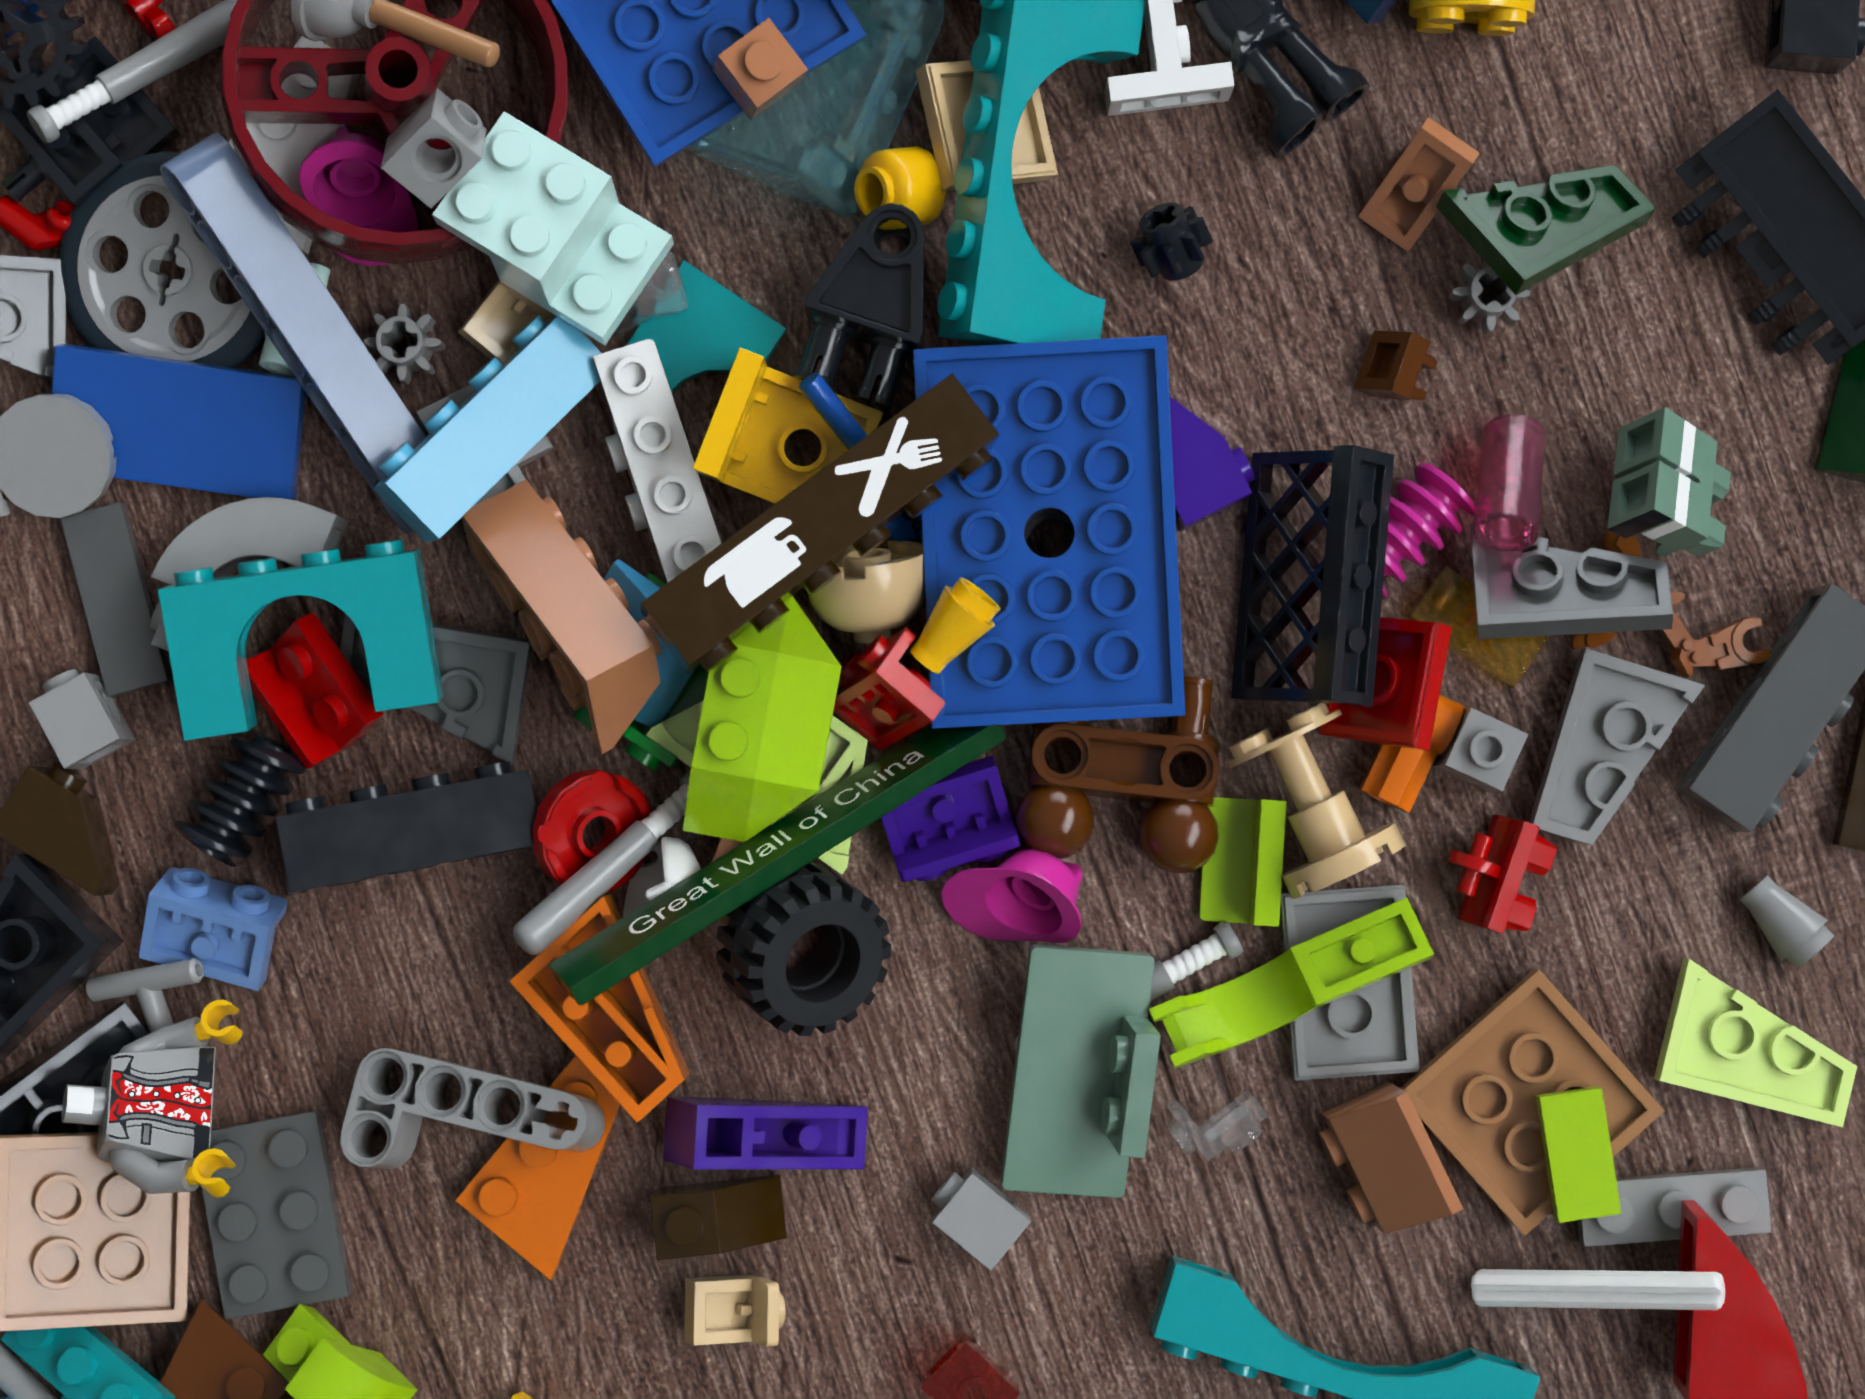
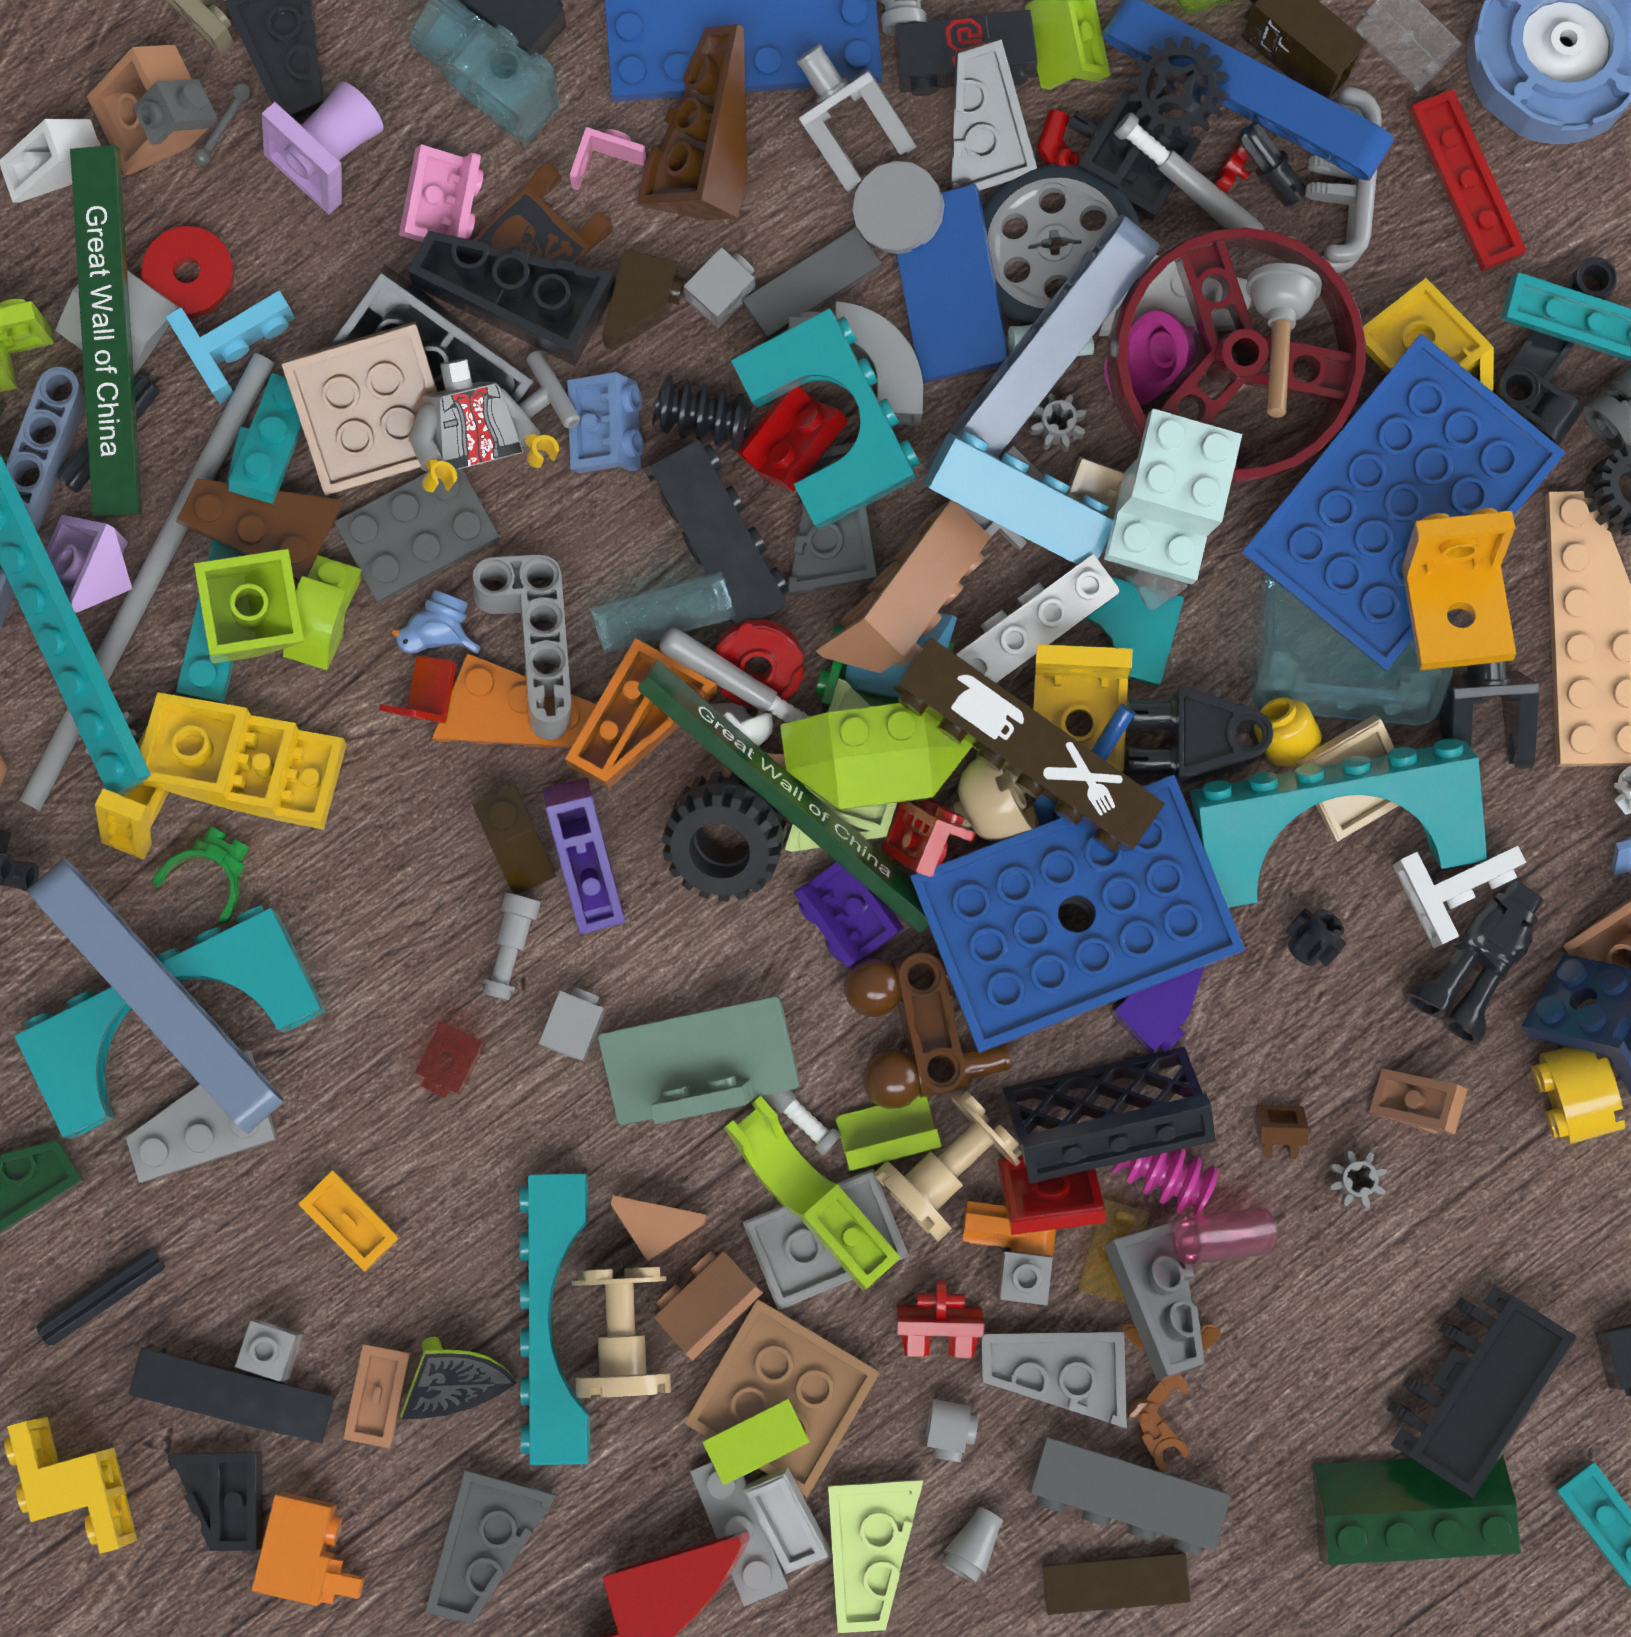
camera: 65 degrees right, 5 degrees down
(406, 1229) = (436, 626): none -> medium blue animal
(427, 170) = (1183, 391): light grey brick -> none
(482, 932) = (655, 611): none -> clear light blue plate
(490, 1266) = (429, 691): none -> red bracket
(733, 1310) = (451, 872): tan bracket -> none
(759, 69) = (1334, 601): nougat brick -> none
(842, 1259) = (511, 938): none -> light grey piece
(955, 624) = (991, 866): yellow cone -> none
(1020, 900) = (808, 980): dark pink piece -> none
(1230, 1127) = (693, 1185): clear bracket -> none
(1265, 1193) = (654, 1225): none -> nougat slope
(1415, 1288) = (622, 1351): none -> tan piece
(1547, 225) = (1419, 1203): dark green wing -> none
(1598, 1289) = (663, 1485): white axle -> none
(1637, 905) = (949, 1429): none -> light grey plate
(1668, 485) = (1262, 1350): sand green hips -> none
(1684, 1145) = (787, 1520): none -> light grey tile

